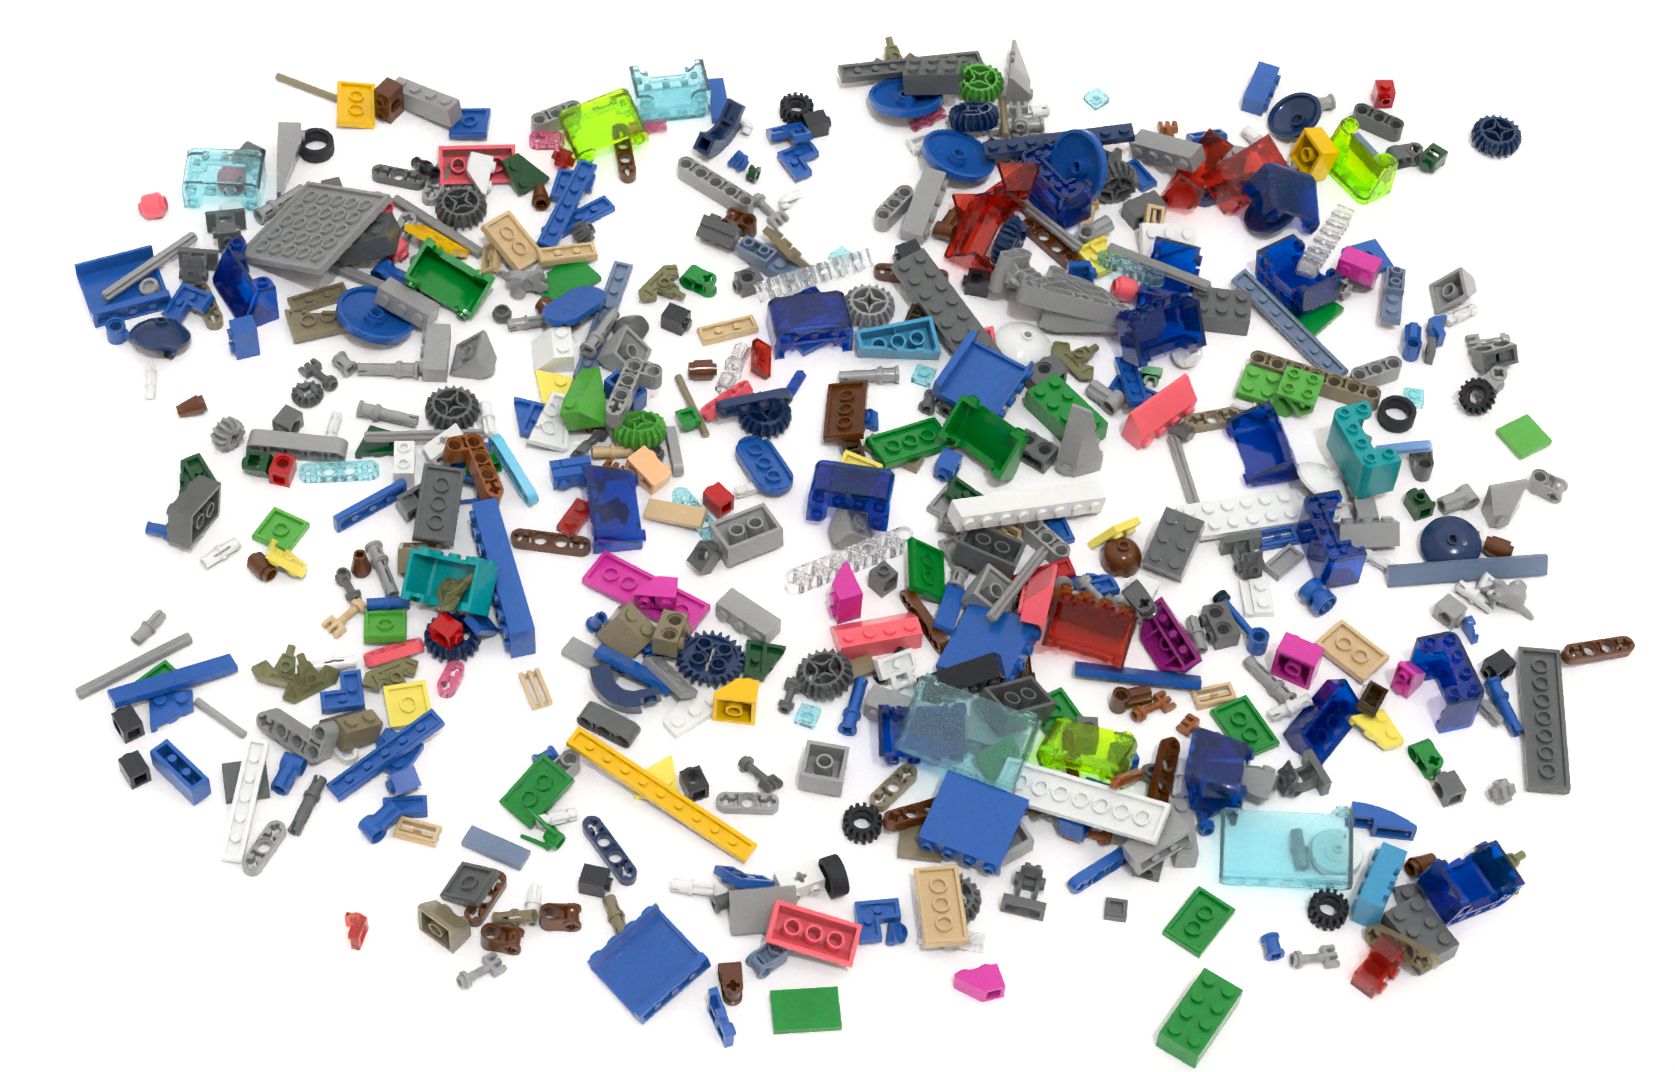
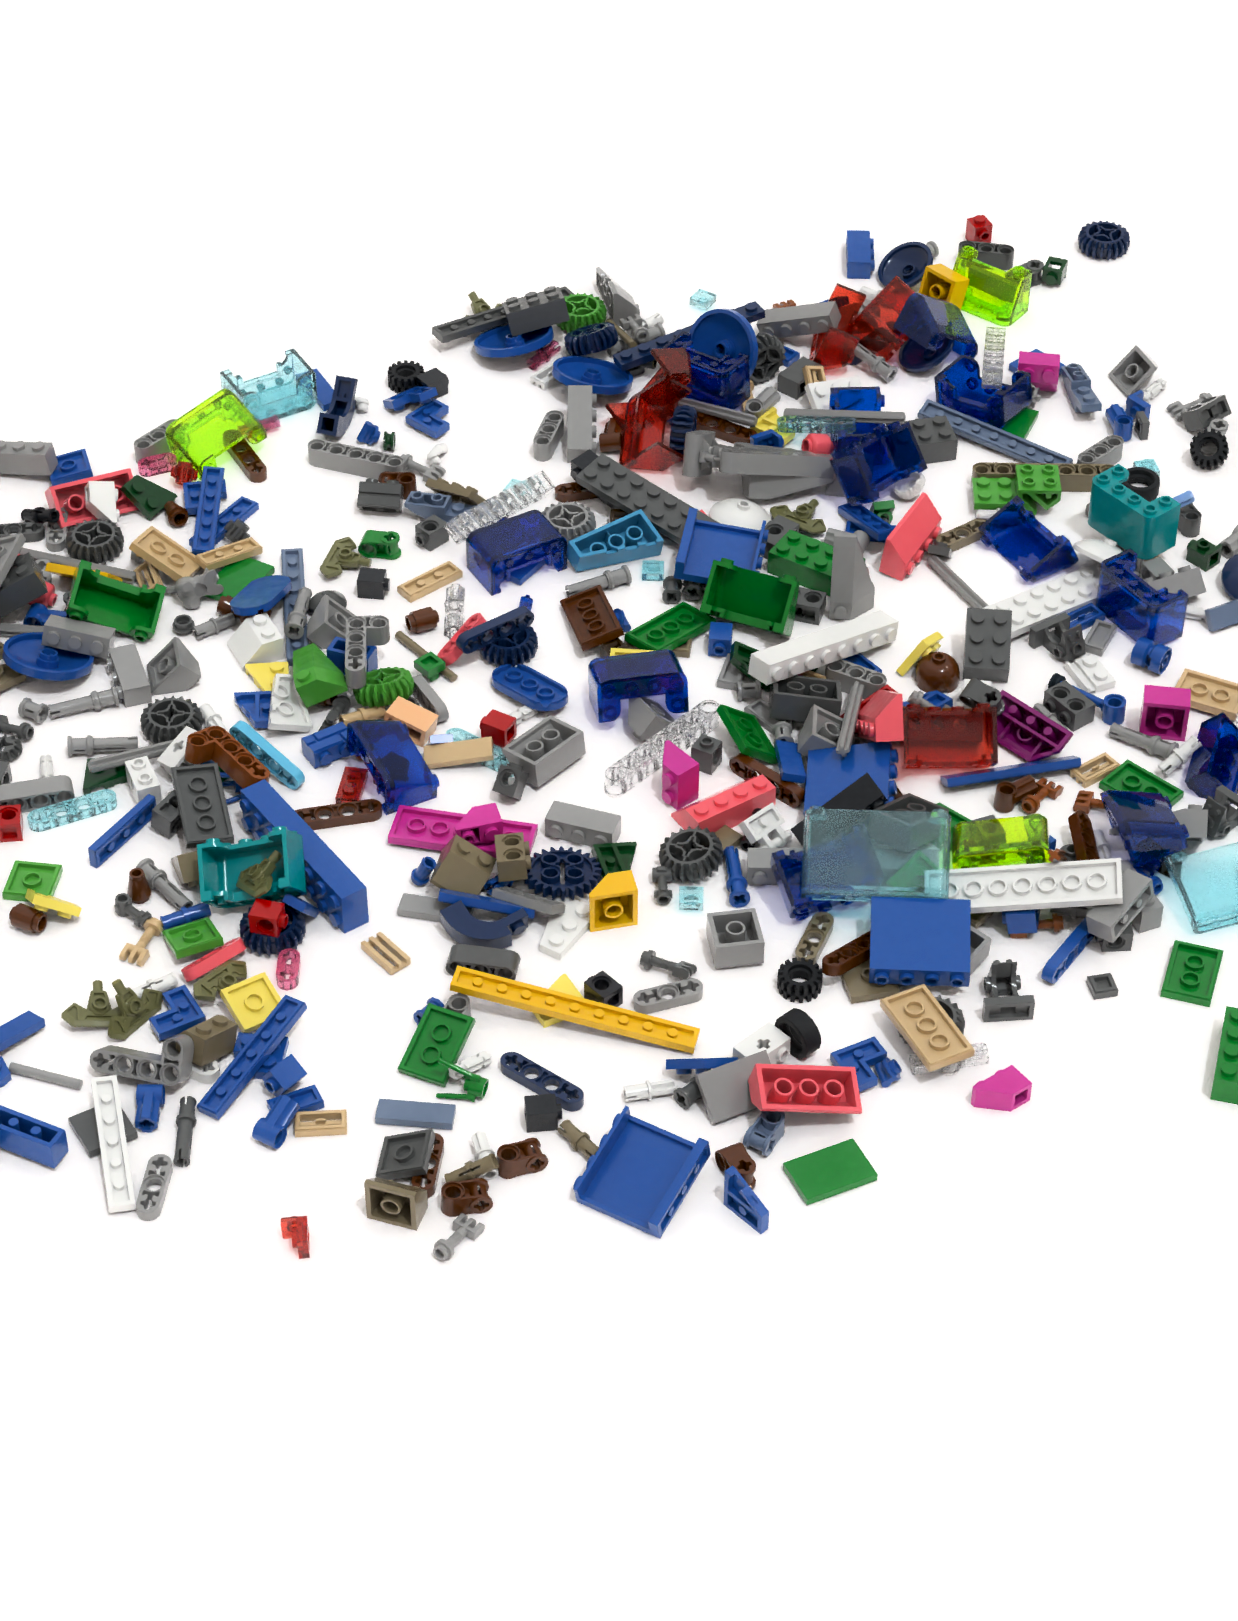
camera: 15 degrees left, 10 degrees down
(665, 496) = (440, 738): none -> tile
(761, 359) = (479, 596): clear red plate -> none
(977, 282) = (667, 476): black brick -> none
(1220, 215) = (876, 363): none -> light grey pin

